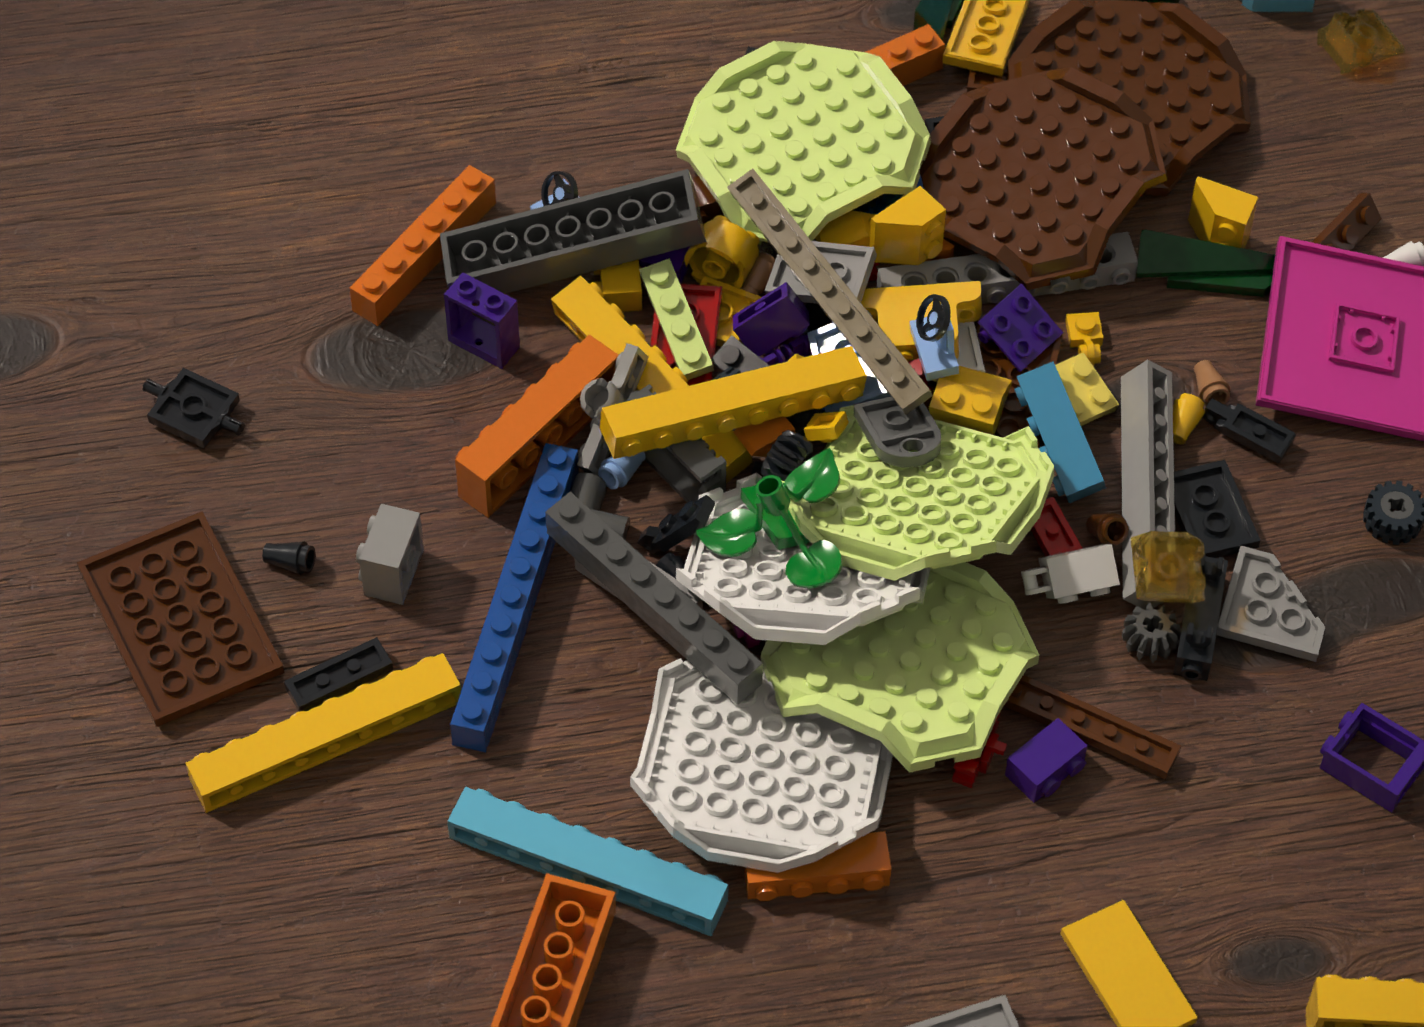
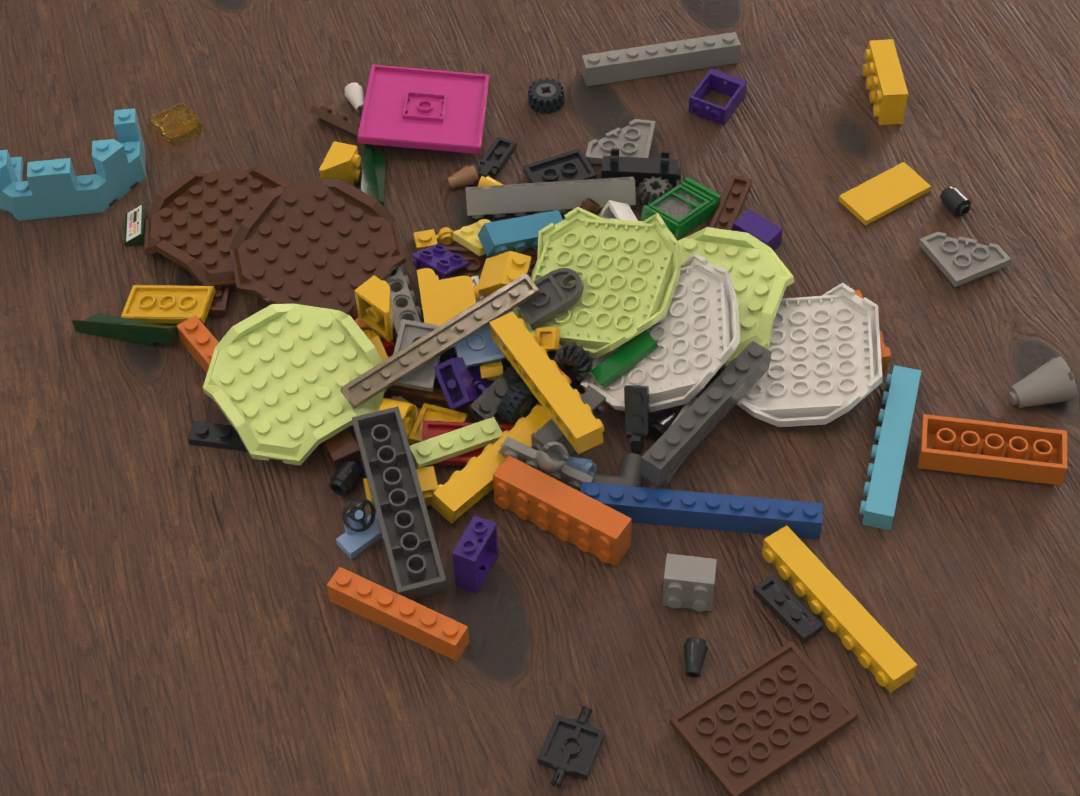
camera: 95 degrees left, 5 degrees down
(735, 530) = (616, 317): green plant -> none
(935, 338) = (477, 278): light blue piece -> none
(1096, 651) = (684, 207): none -> green door
(1168, 567) = (624, 168): clear yellow slope -> none

